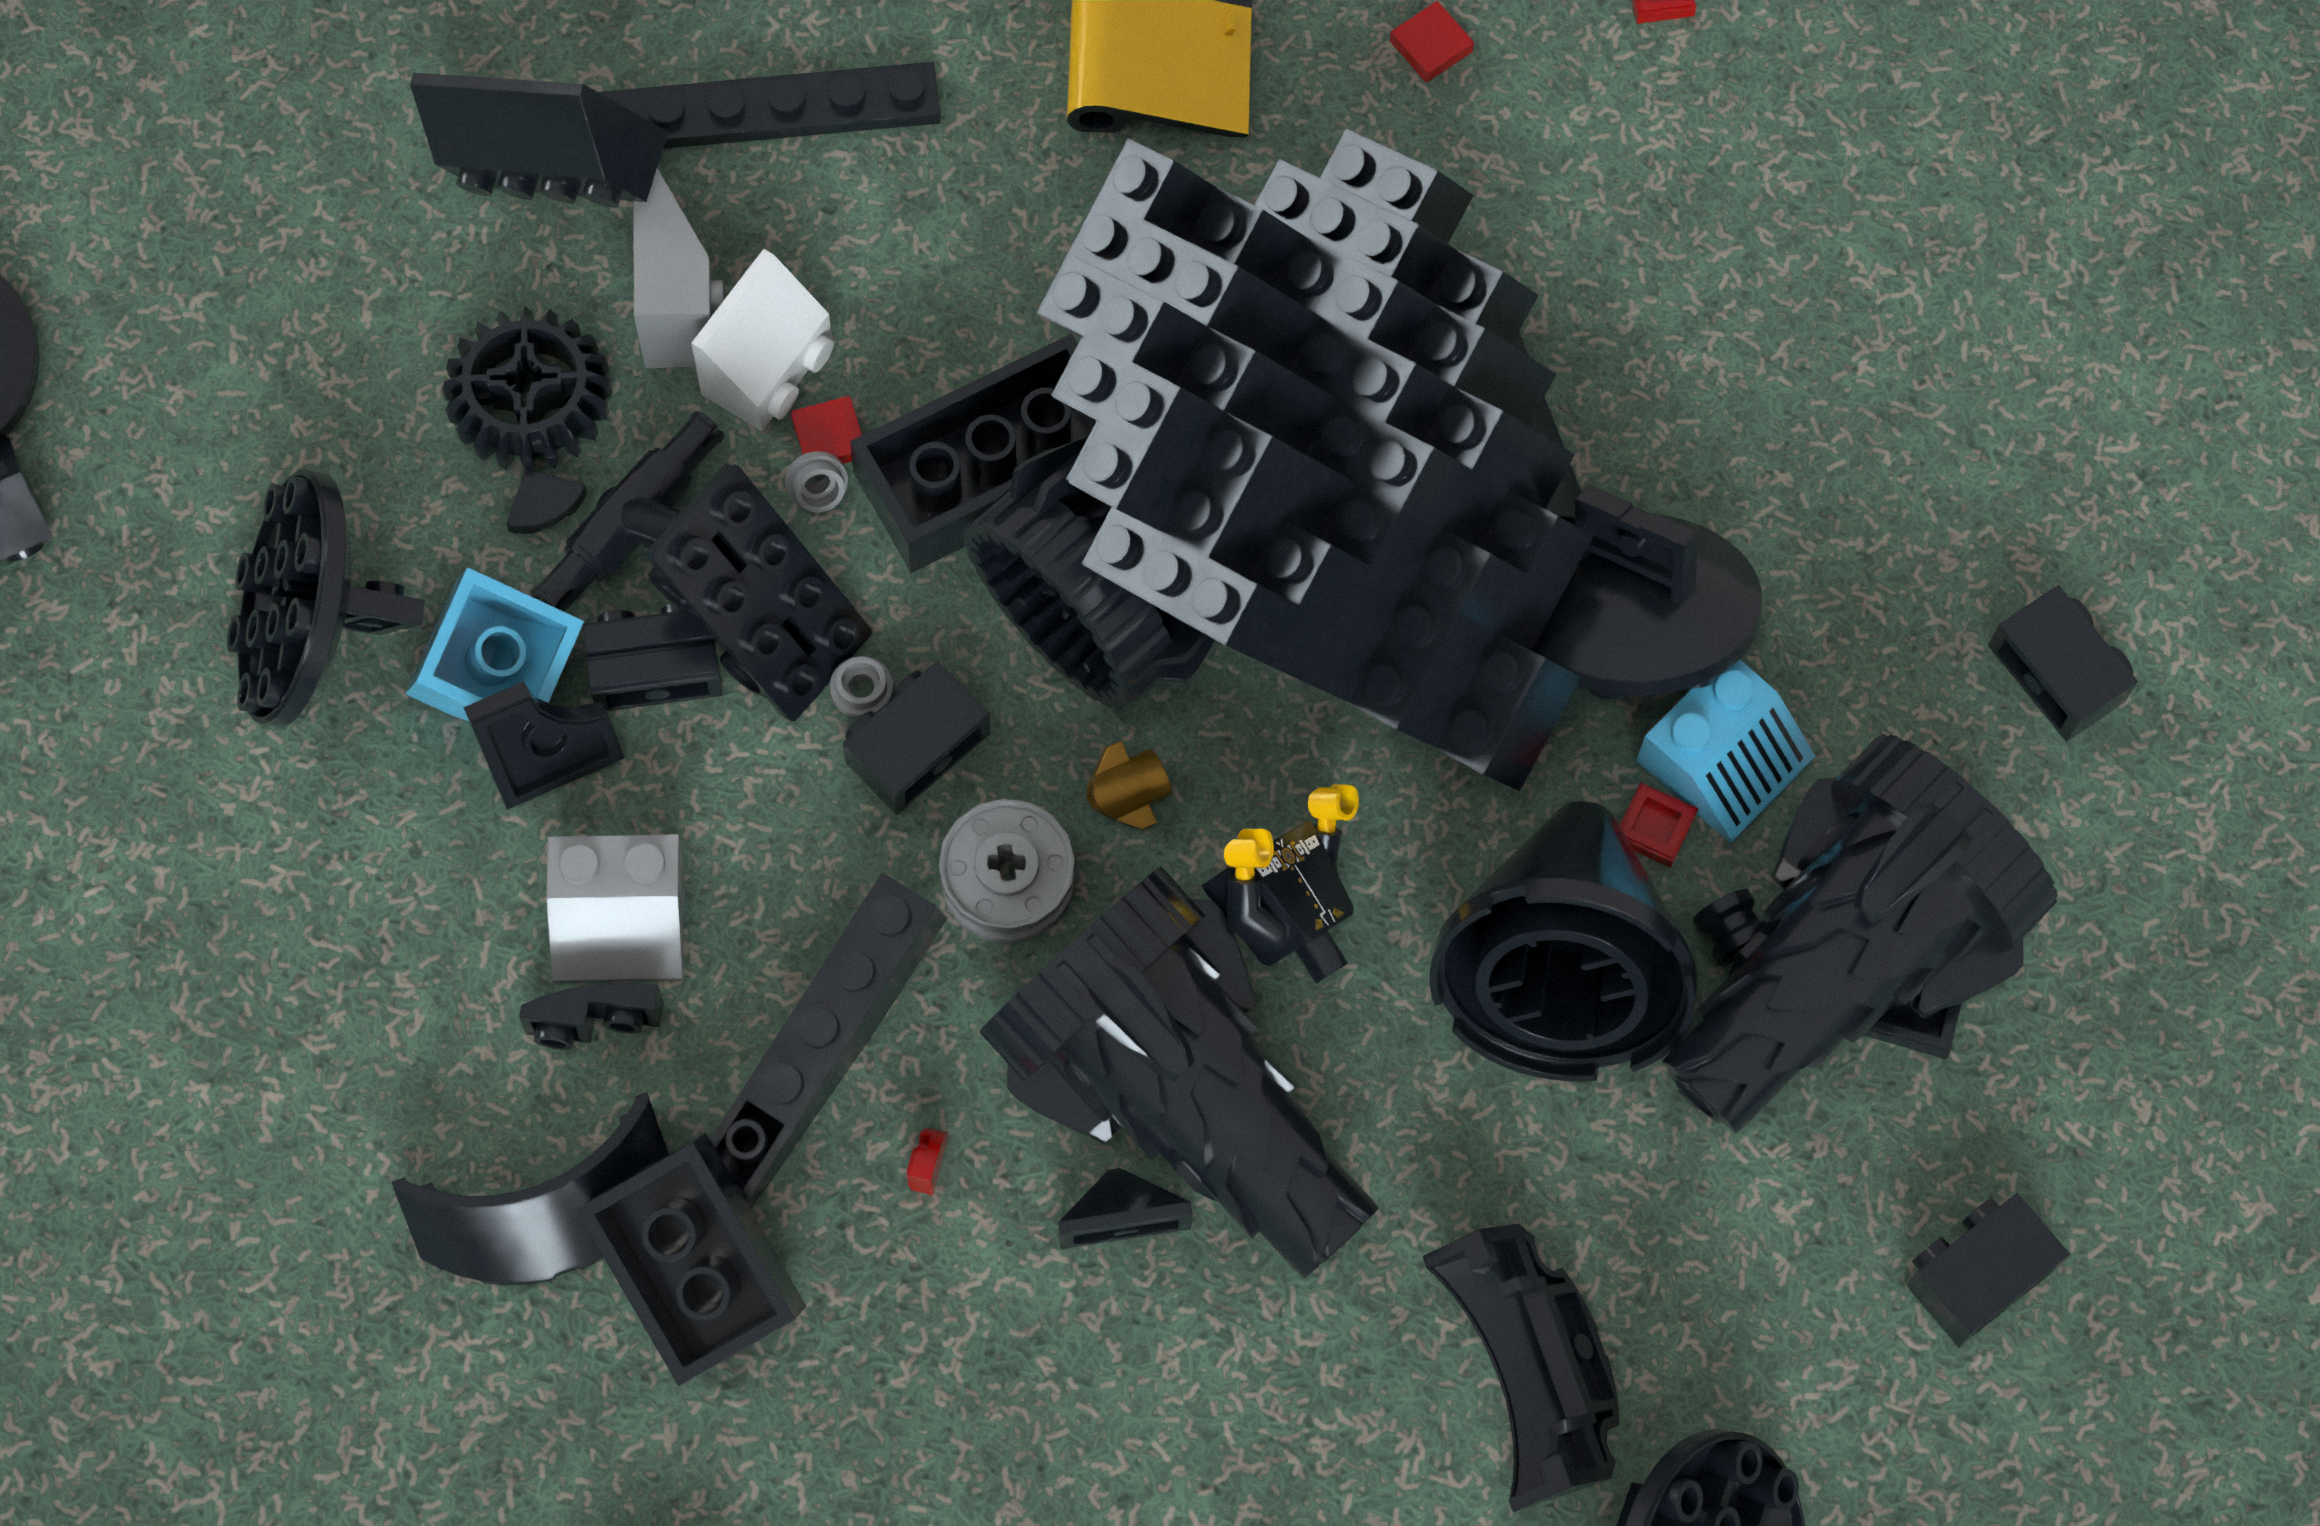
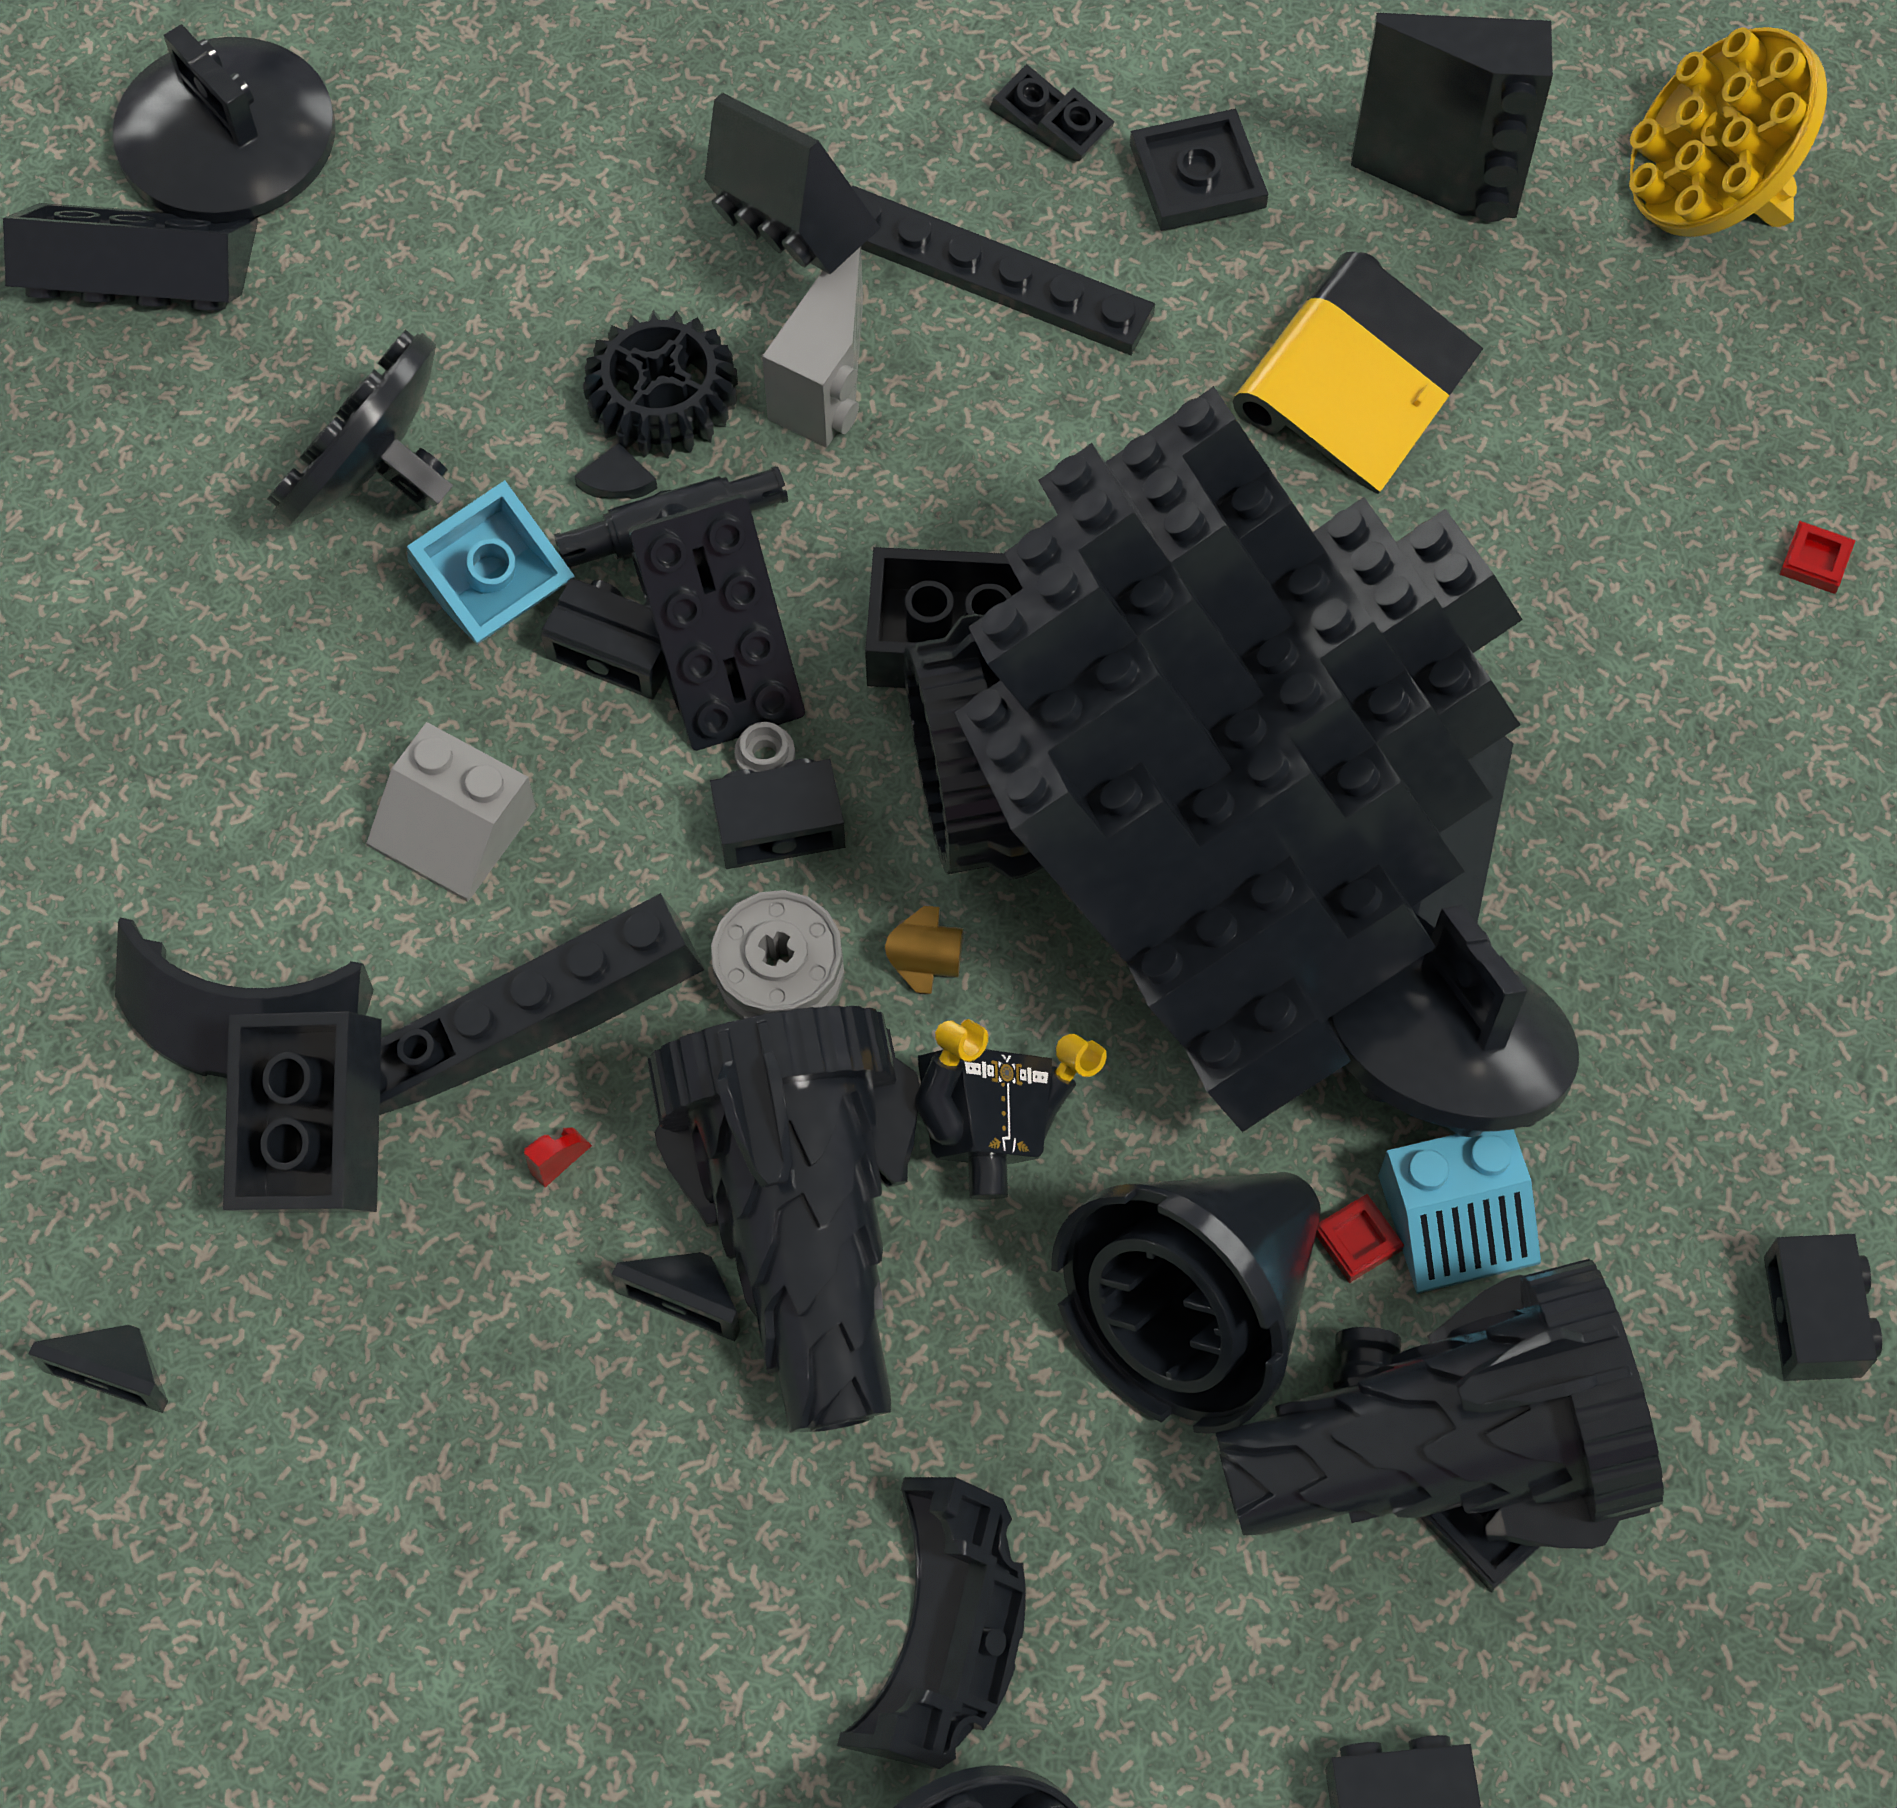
camera: 35 degrees right, 5 degrees down
(540, 745) = (472, 652): black tile -> none
(571, 1013) = (366, 875): black slope -> none
(762, 343) = (861, 438): white slope -> none
(821, 495) = (830, 585): light grey plate -> none
(827, 427) = (871, 531): red tile -> none
(1431, 41) = (1586, 497): red tile -> none

